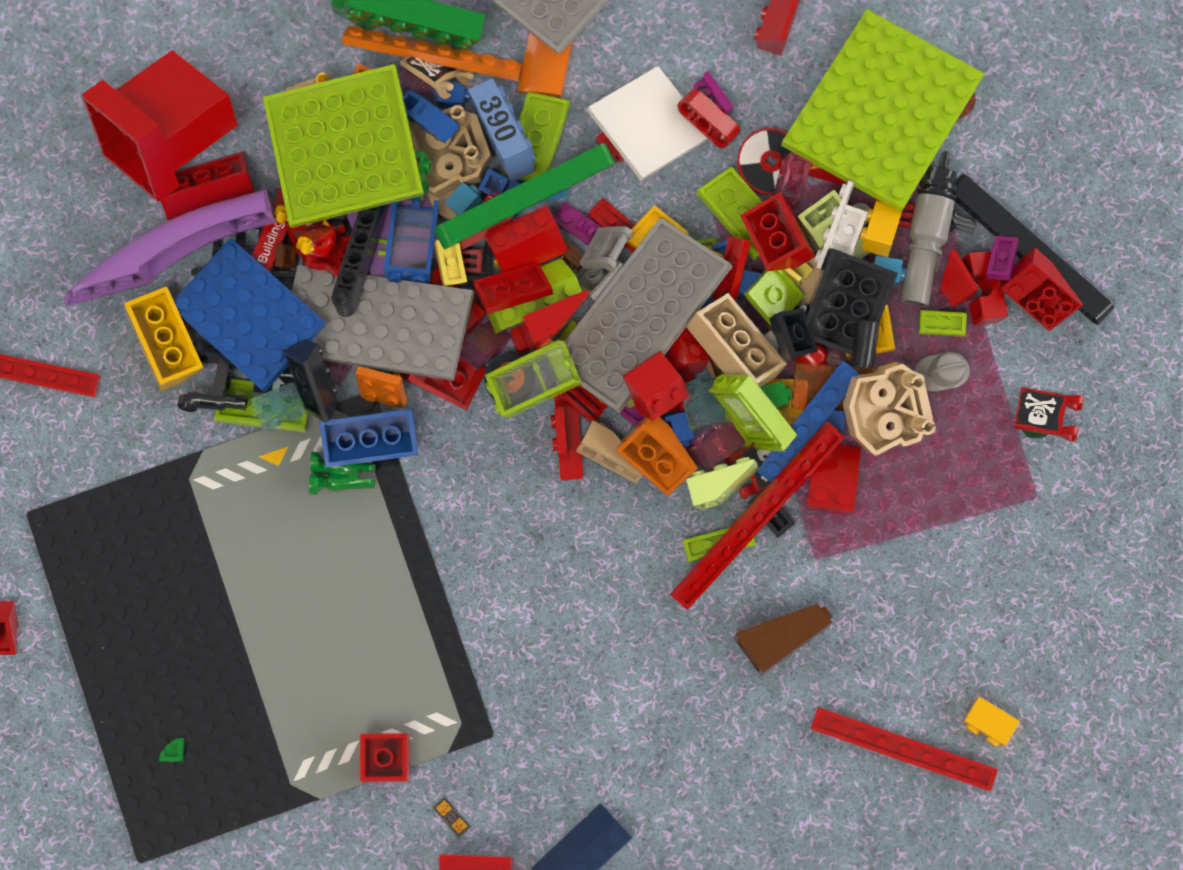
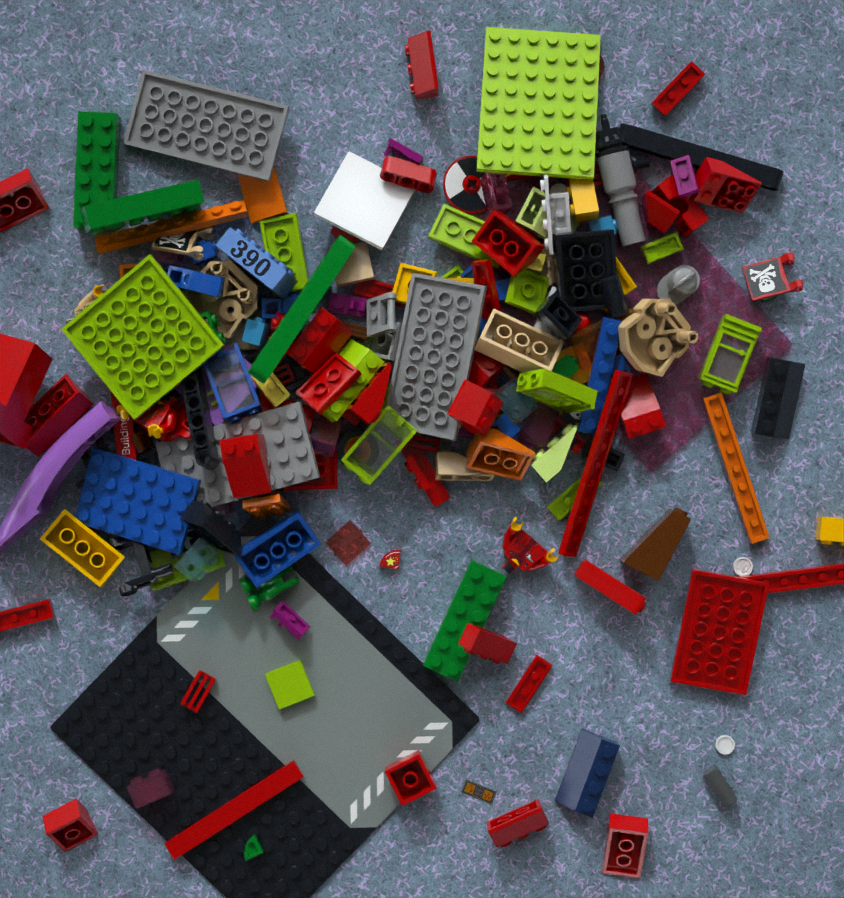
camera: 30 degrees left, 10 degrees up
(98, 628) = (150, 788): none -> clear pink brick
(175, 698) = (234, 809): none -> red tile
(221, 539) = (206, 676): none -> red tile
(306, 593) = (289, 684): none -> lime tile
(343, 522) = (290, 619): none -> magenta plate
(382, 327) = (246, 465): none -> red slope
(448, 473) = (348, 542): none -> clear red piece
(485, 514) = (391, 559): none -> red tile
(531, 616) = (469, 605): none -> green brick
(542, 651) = (487, 644): none -> red brick
(566, 723) = (528, 683): none -> red tile
(604, 187) = (356, 268): none -> tan tile
(633, 573) = (524, 550): none -> red torso
(708, 658) = (610, 587): none -> red slope
(804, 768) = (719, 631): none -> red plate
(866, 712) = (742, 566): none -> white piece
(910, 598) = (735, 468): none -> orange plate
(961, 470) = (729, 354): none -> lime door
(994, 545) = (778, 398): none -> black slope
(1041, 167) = (678, 88): none -> red plate

